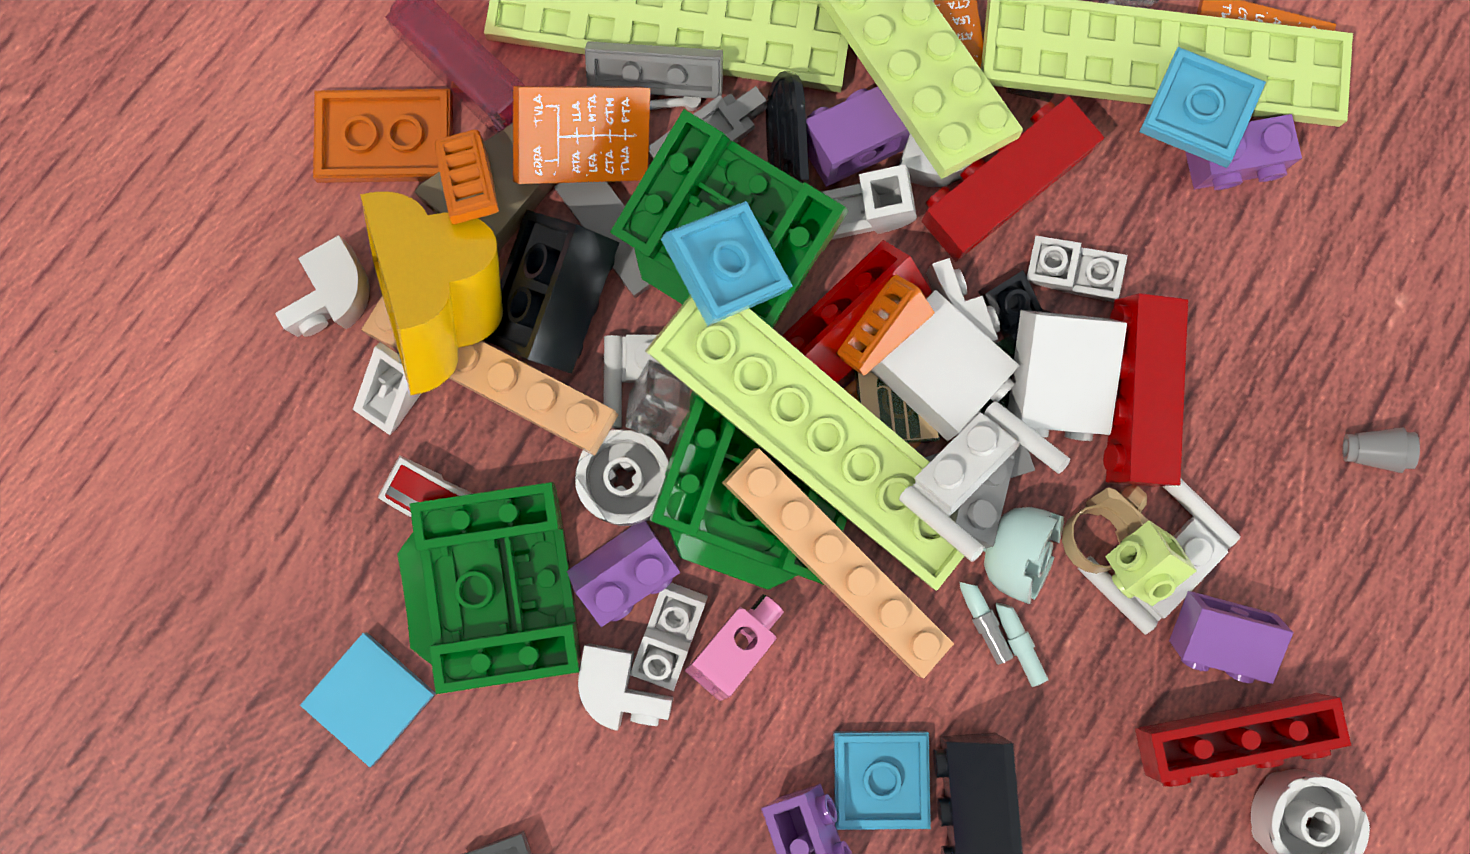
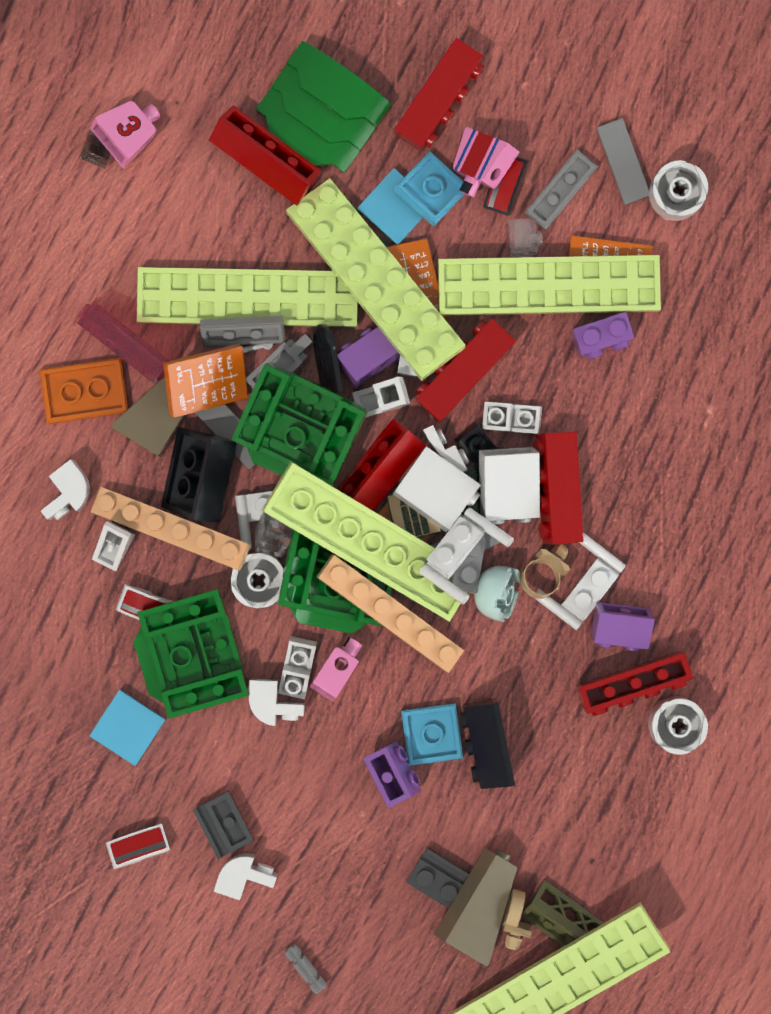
camera: 10 degrees left, 5 degrees up
(434, 282) = (132, 481): yellow brick -> none
(464, 173) = (138, 403): orange slope -> none
(622, 573) = (265, 635): medium lavender brick -> none
(726, 263) = (301, 454): medium azure tile -> none
(885, 325) = (398, 473): orange slope -> none
(986, 623) = (482, 635): light grey piece -> none
(1021, 644) = (504, 645): light aqua piece -> none
(1149, 564) = (568, 590): yellowish green brick -> none
(1202, 107) = (570, 316): medium azure tile -> none
(1383, 449) = (704, 503): light grey cone -> none

